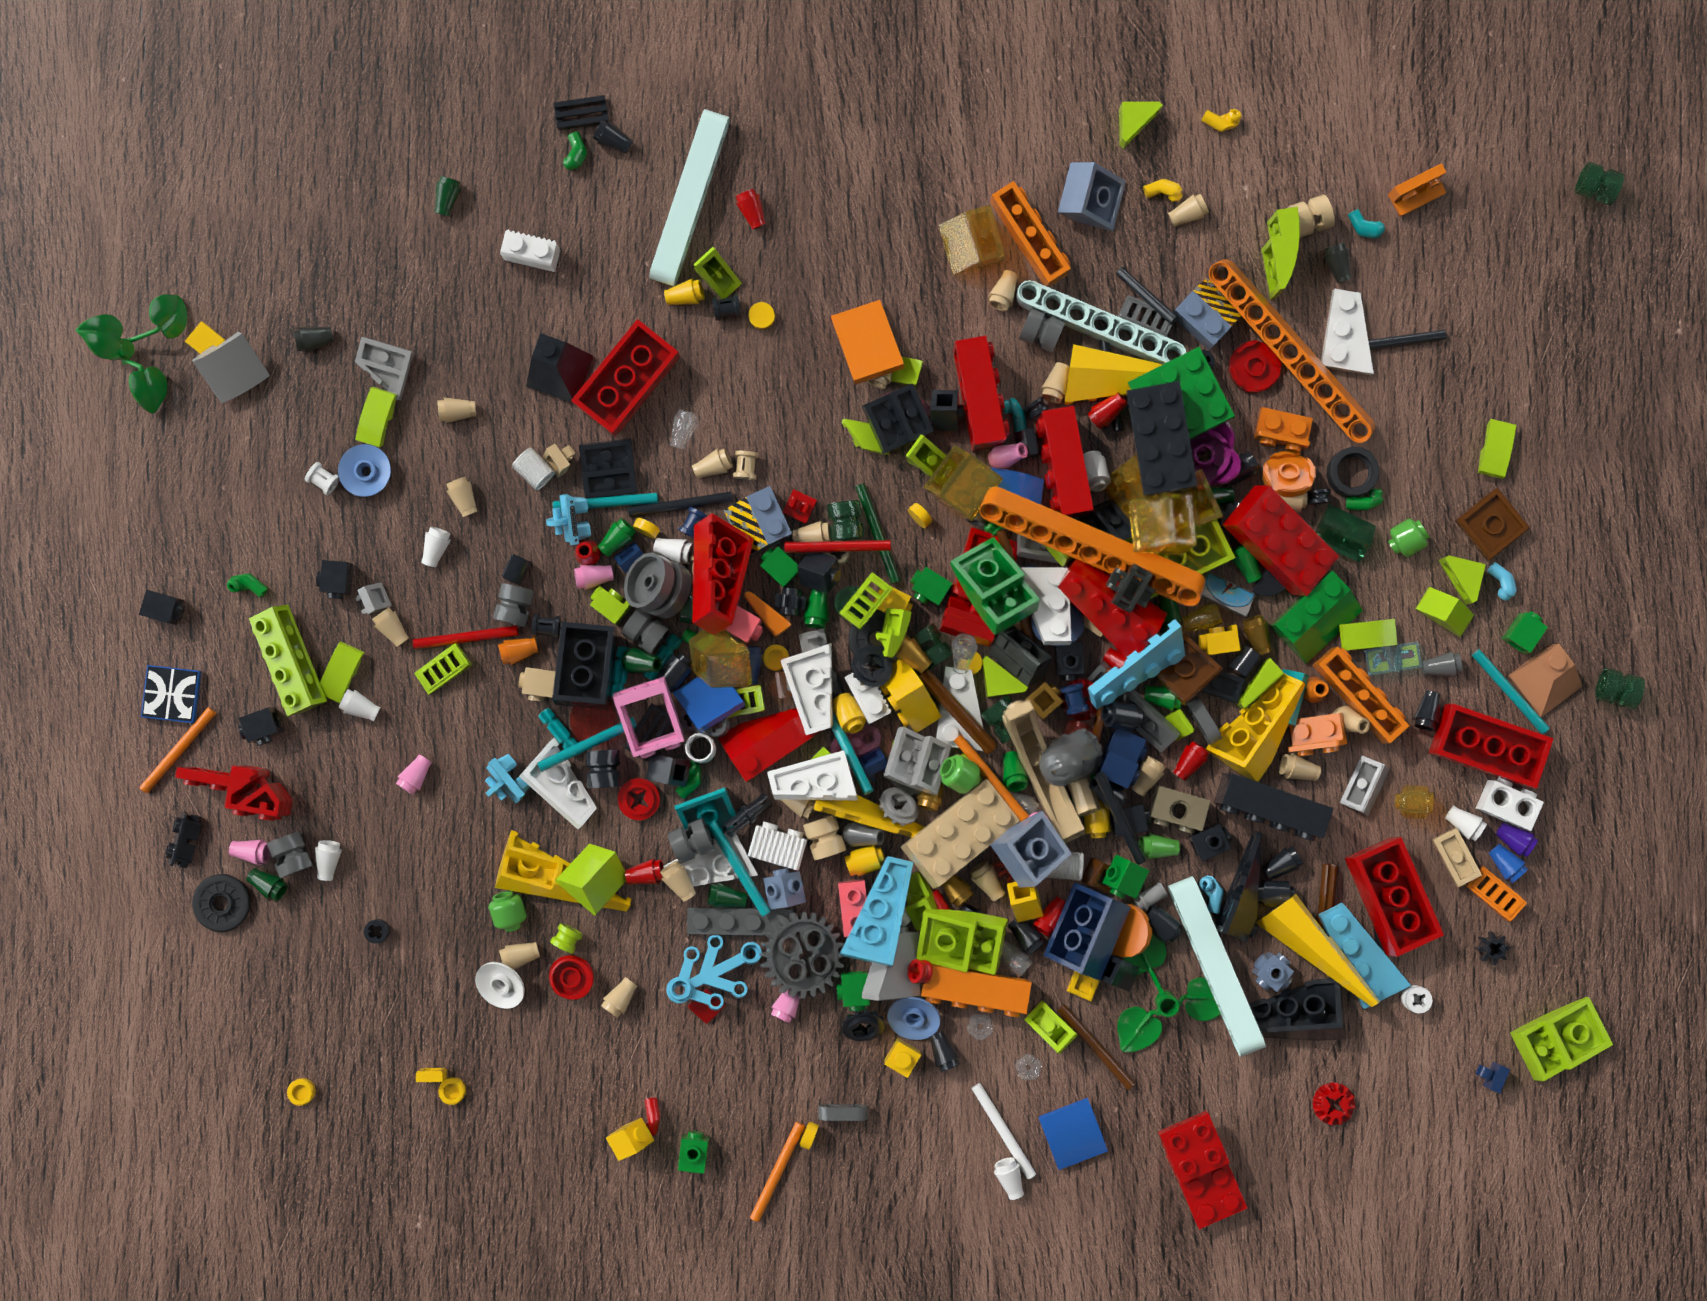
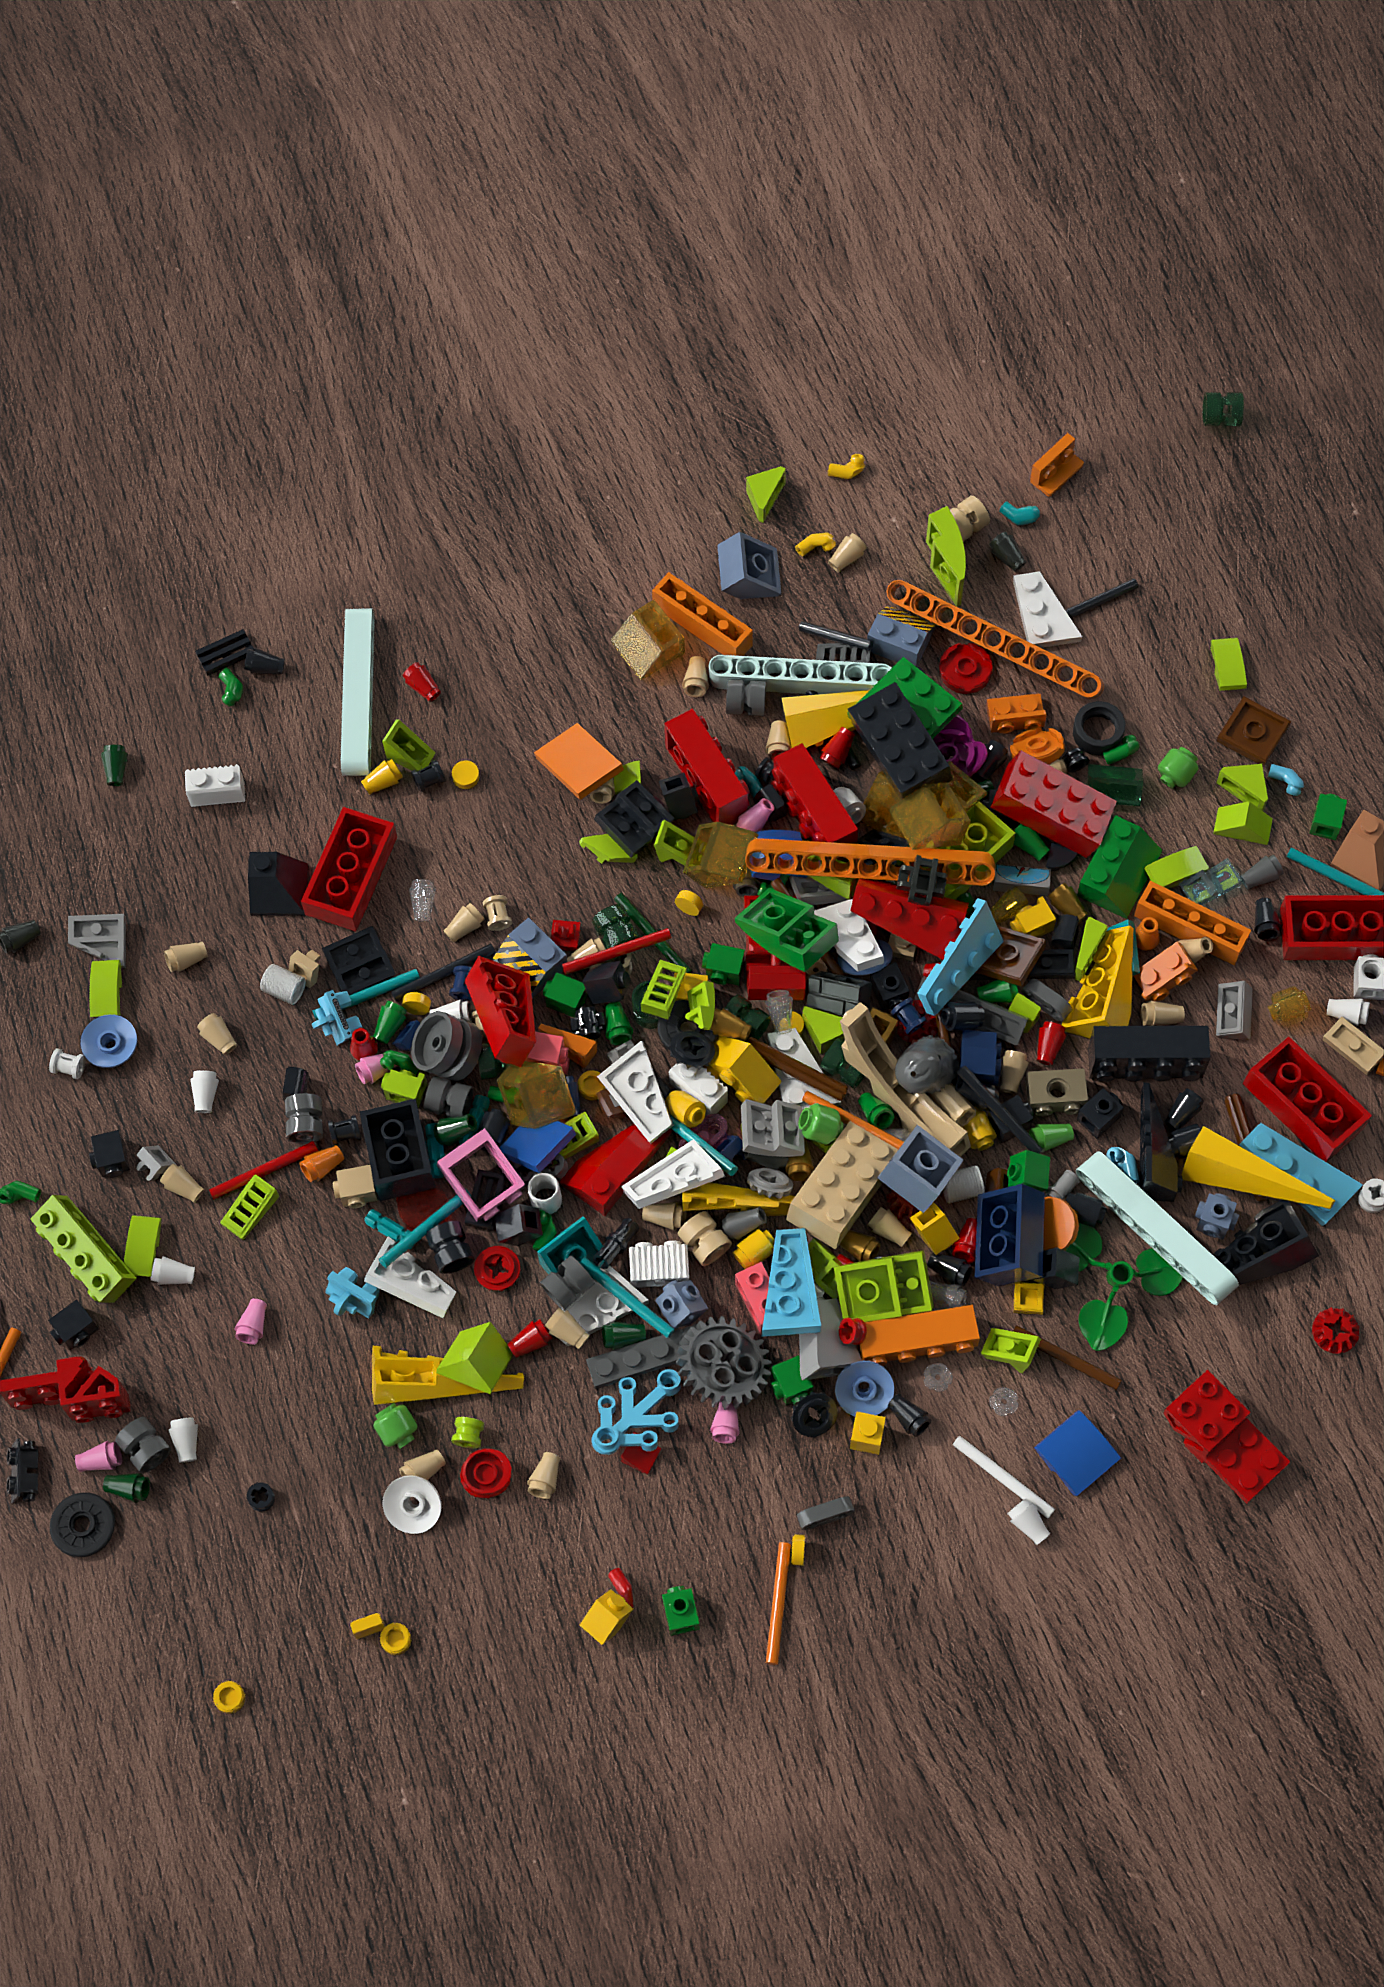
camera: 15 degrees left, 20 degrees down
(615, 580) = (400, 1059): none -> green arm

